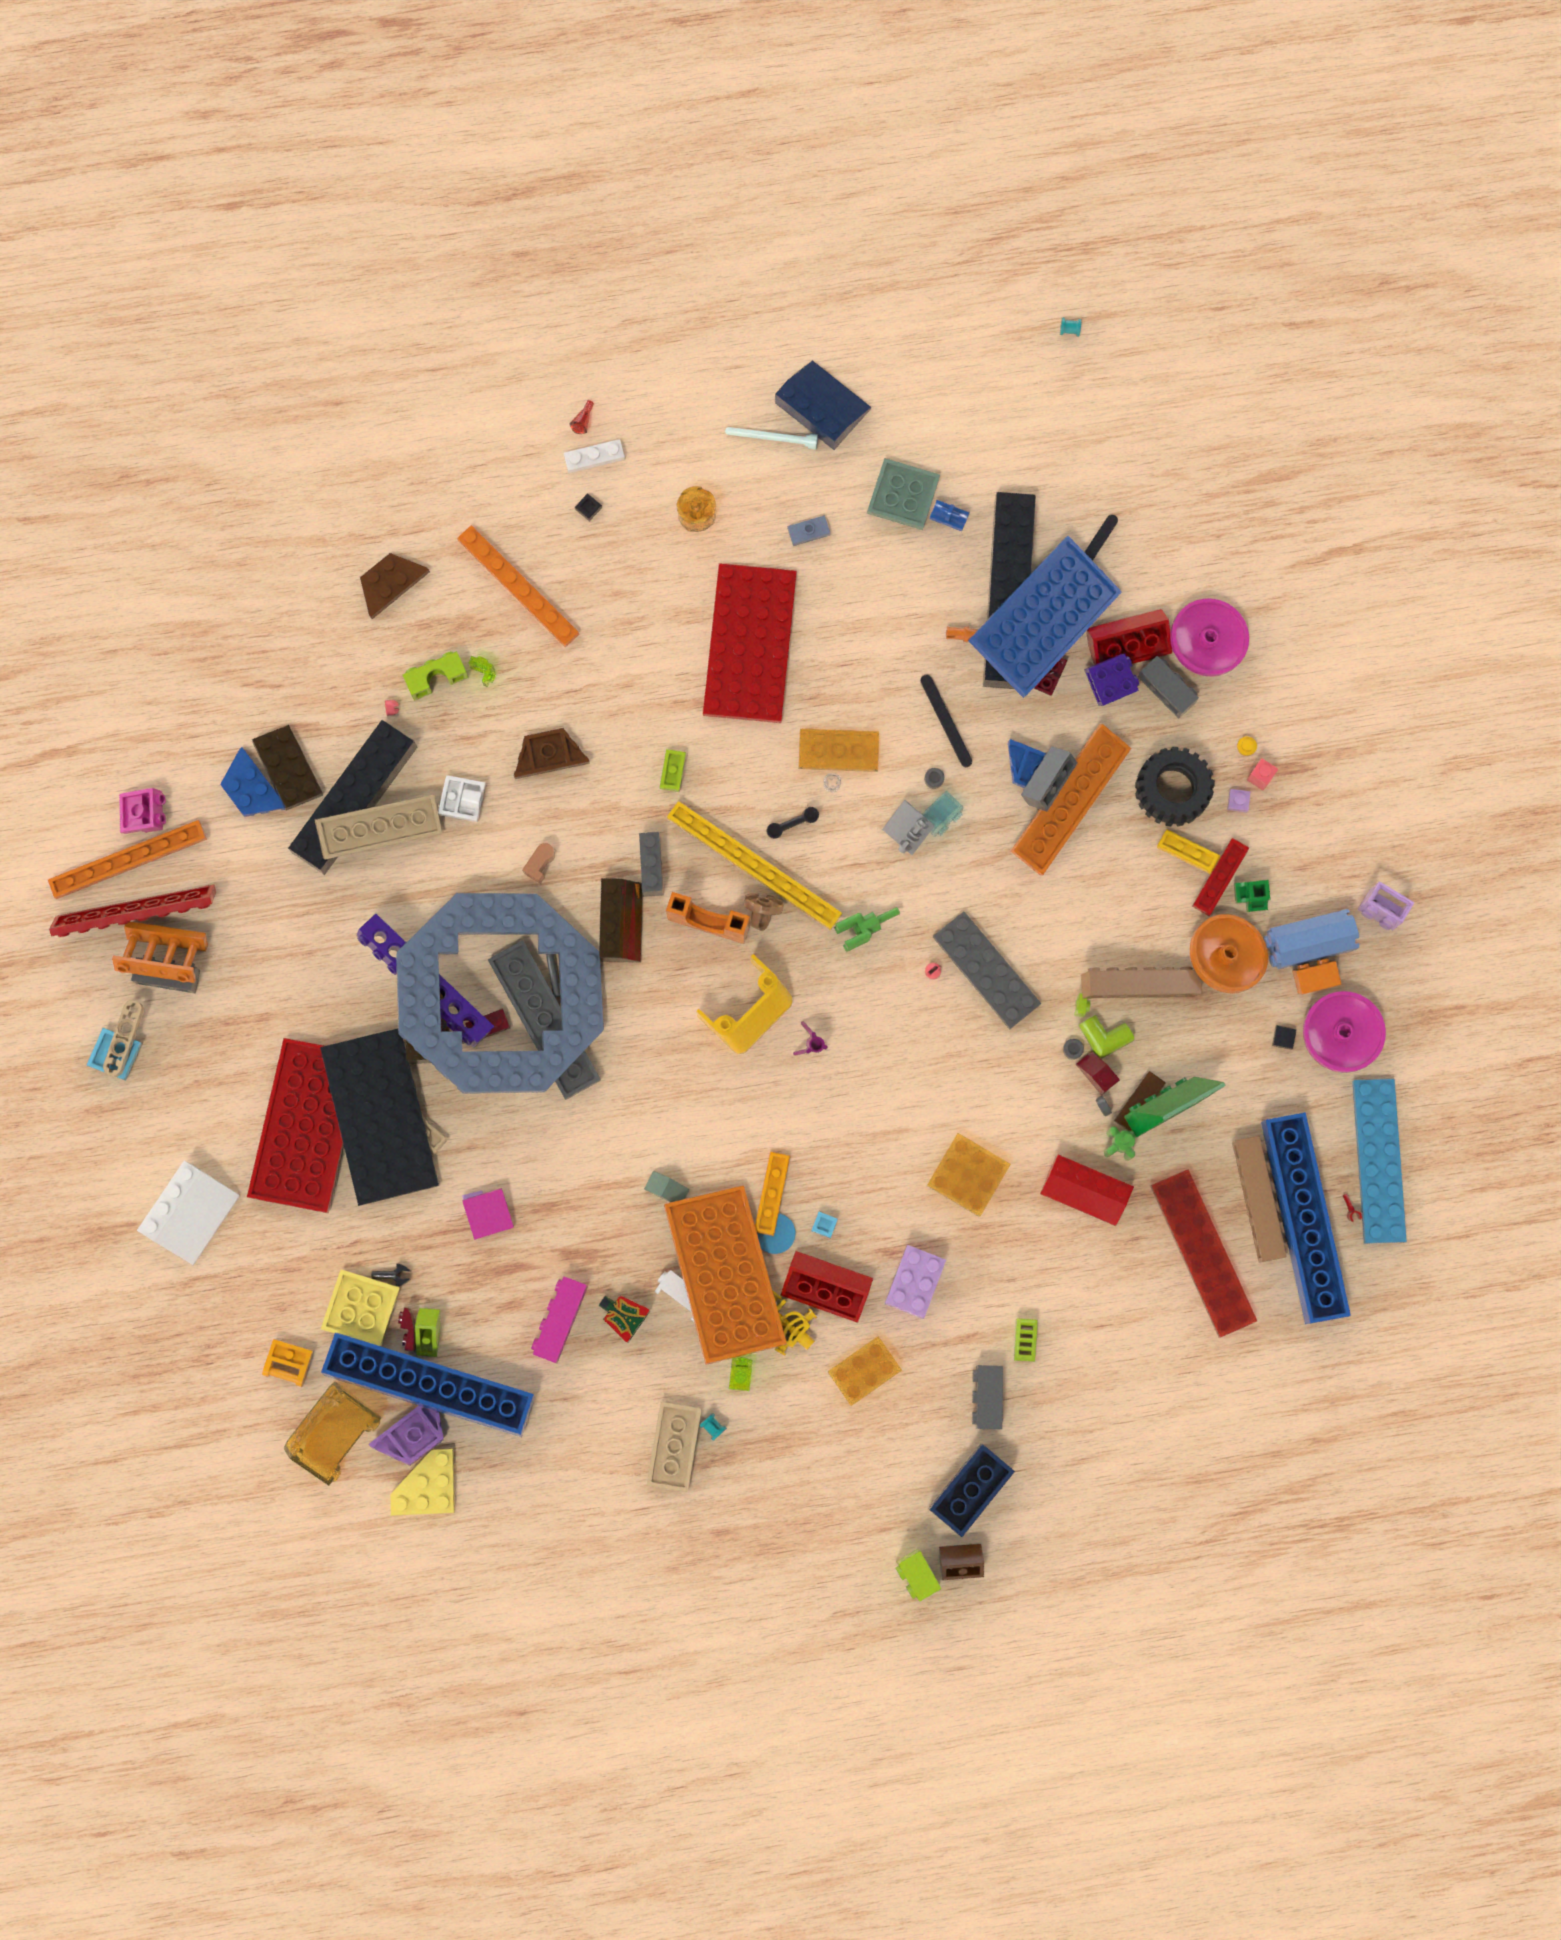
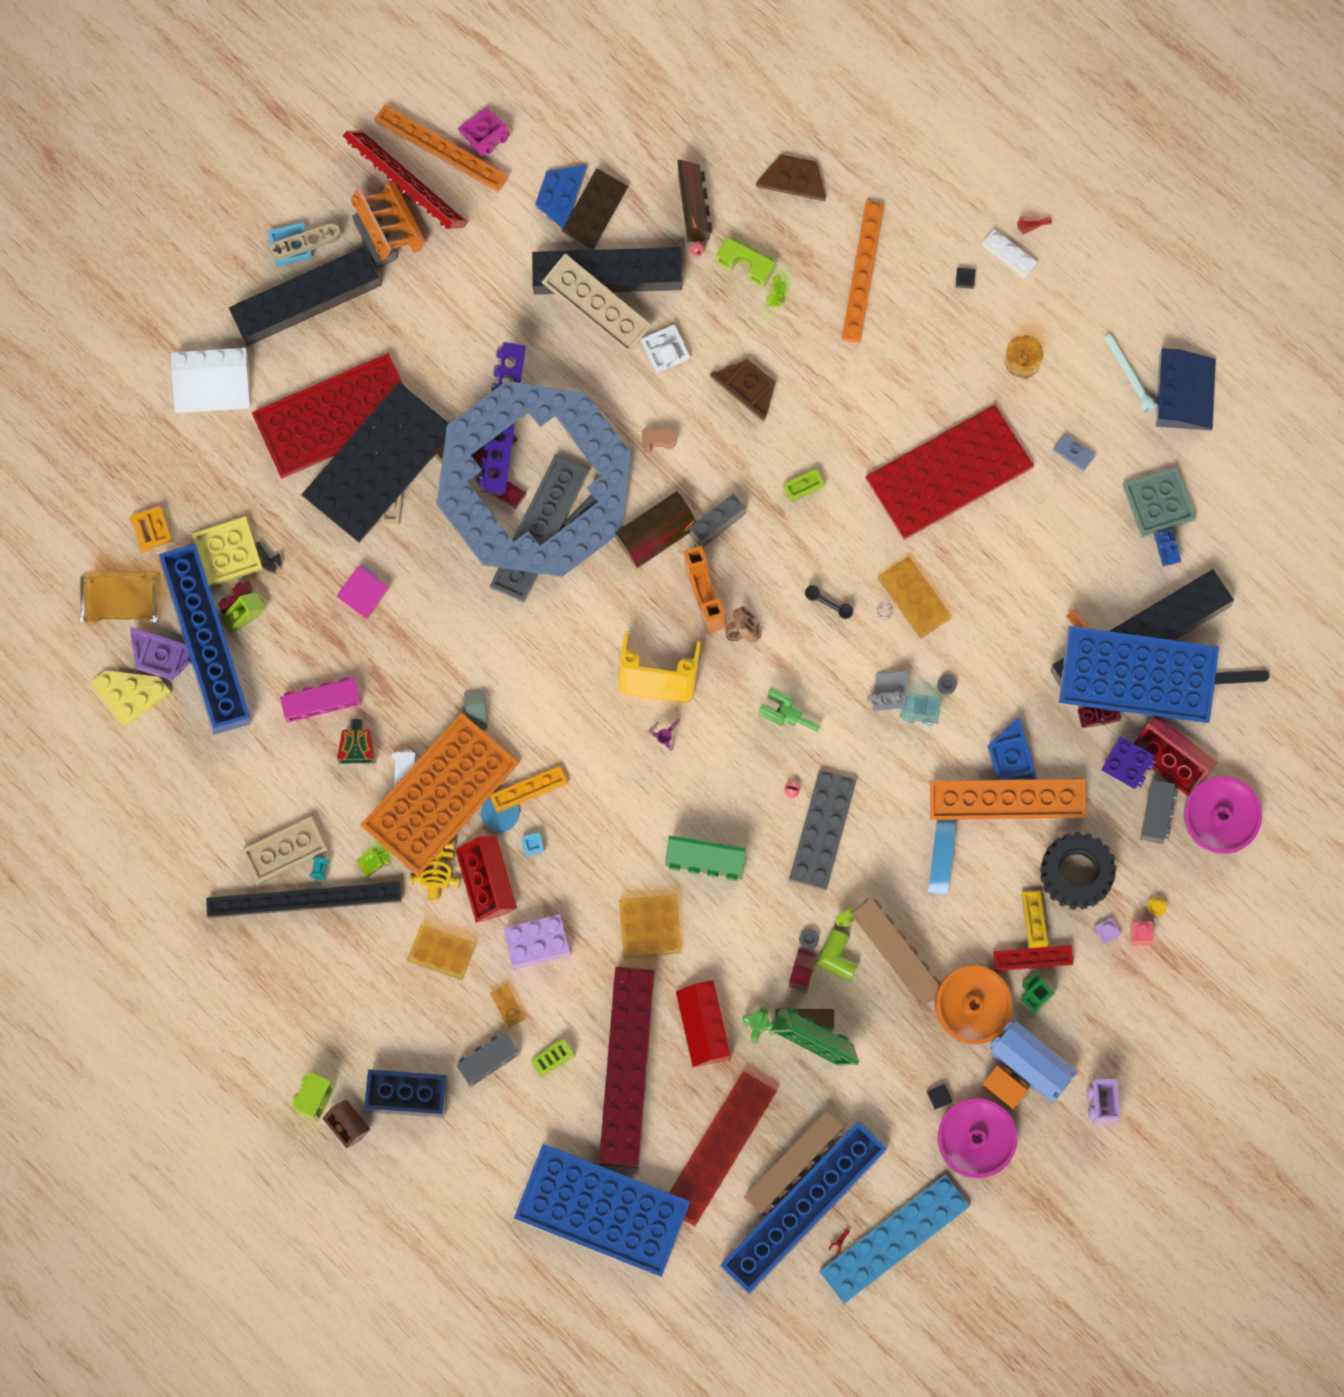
camera: 60 degrees right, 5 degrees down
(174, 1074) = (305, 296): none -> black brick
(347, 680) = (693, 201): none -> dark brown slope
(730, 1461) = (303, 899): none -> black plate
(754, 865) = (774, 598): yellow plate -> none
(944, 1086) = (705, 857): none -> slope
(946, 721) = (1000, 662): black piece -> none
(951, 1346) = (507, 1006): none -> clear yellow tile
(1049, 778) = (1008, 768): brick -> none
(1080, 1282) = (626, 1067): none -> dark red brick
(1081, 887) = (942, 857): none -> dark azure slope
(1104, 1107) = (779, 992): dark grey tile -> none
(1190, 1390) = (602, 1210): none -> blue plate

